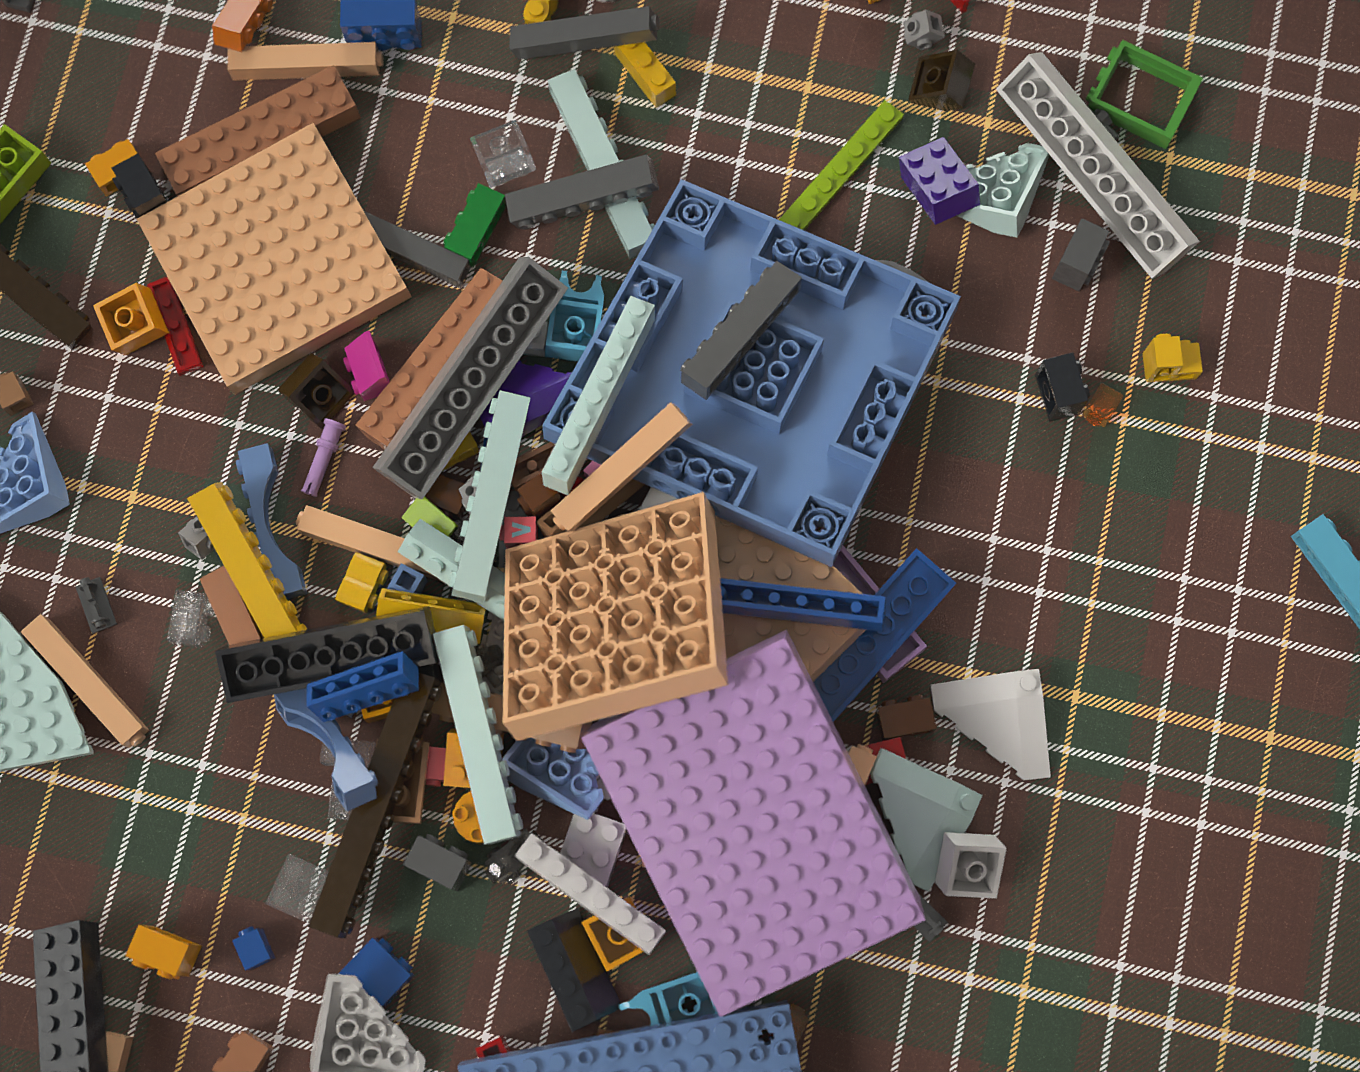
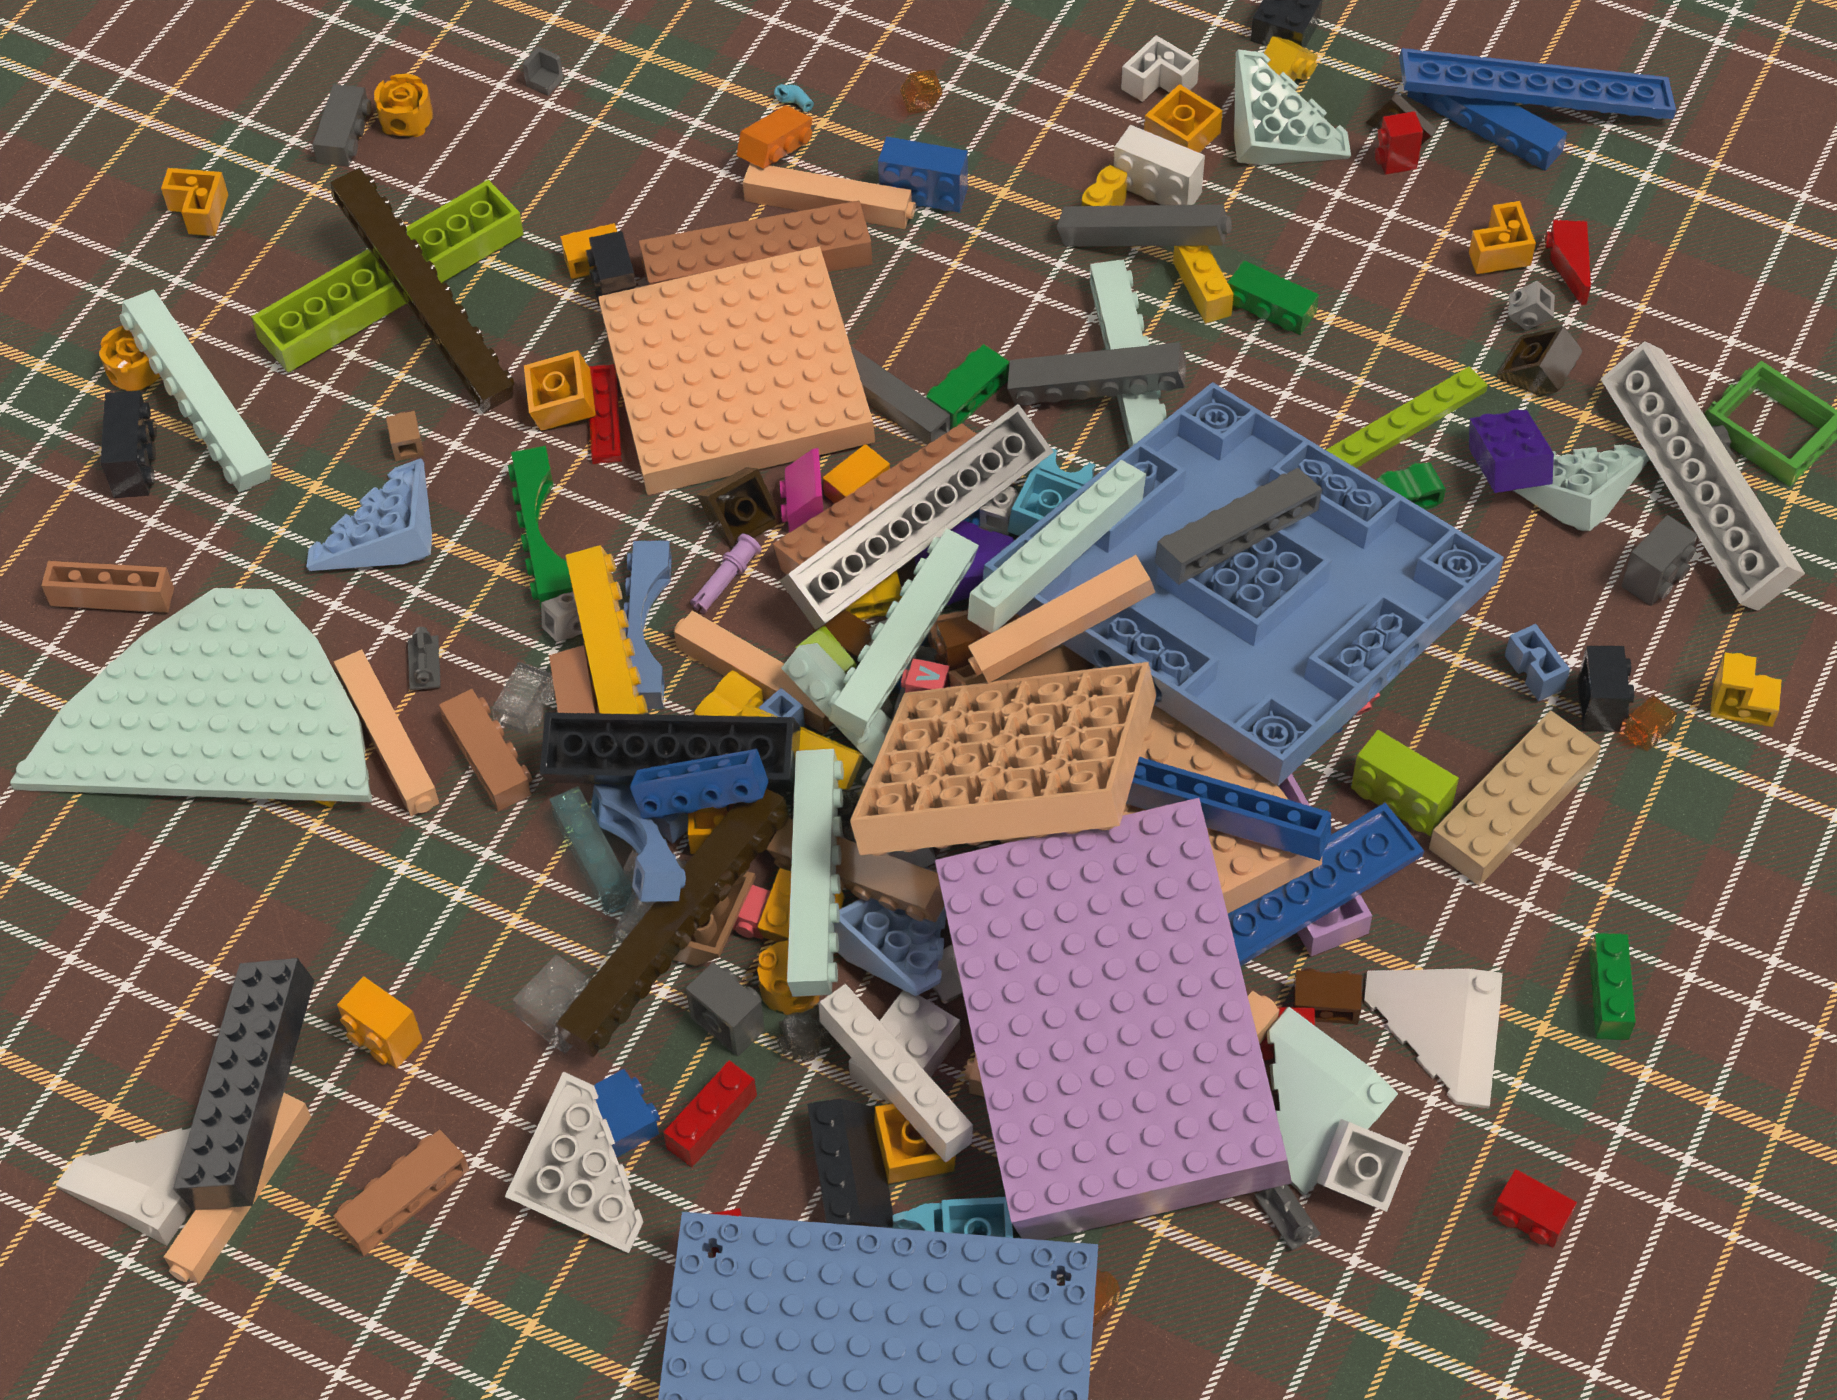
camera: 15 degrees right, 20 degrees down
(135, 411) = (534, 483): none -> green arch
(172, 675) = (486, 750): none -> nougat brick
(253, 948) = (481, 1052): blue brick -> none
(287, 745) = (591, 850): none -> clear light blue brick
(405, 336) = (853, 473): none -> light orange brick
(451, 953) = (710, 1113): none -> red brick
(503, 154) = (1019, 322): clear brick -> none
(707, 72) = (1273, 297): none -> green brick
(865, 232) = (1416, 483): none -> green brick
(923, 516) = (1404, 781): none -> lime brick
(1004, 372) = (1534, 654): none -> medium blue brick
(1012, 502) = (1514, 798): none -> tan brick
(1104, 859) = (1534, 1208): none -> red brick
(1123, 651) = (1612, 986): none -> green brick

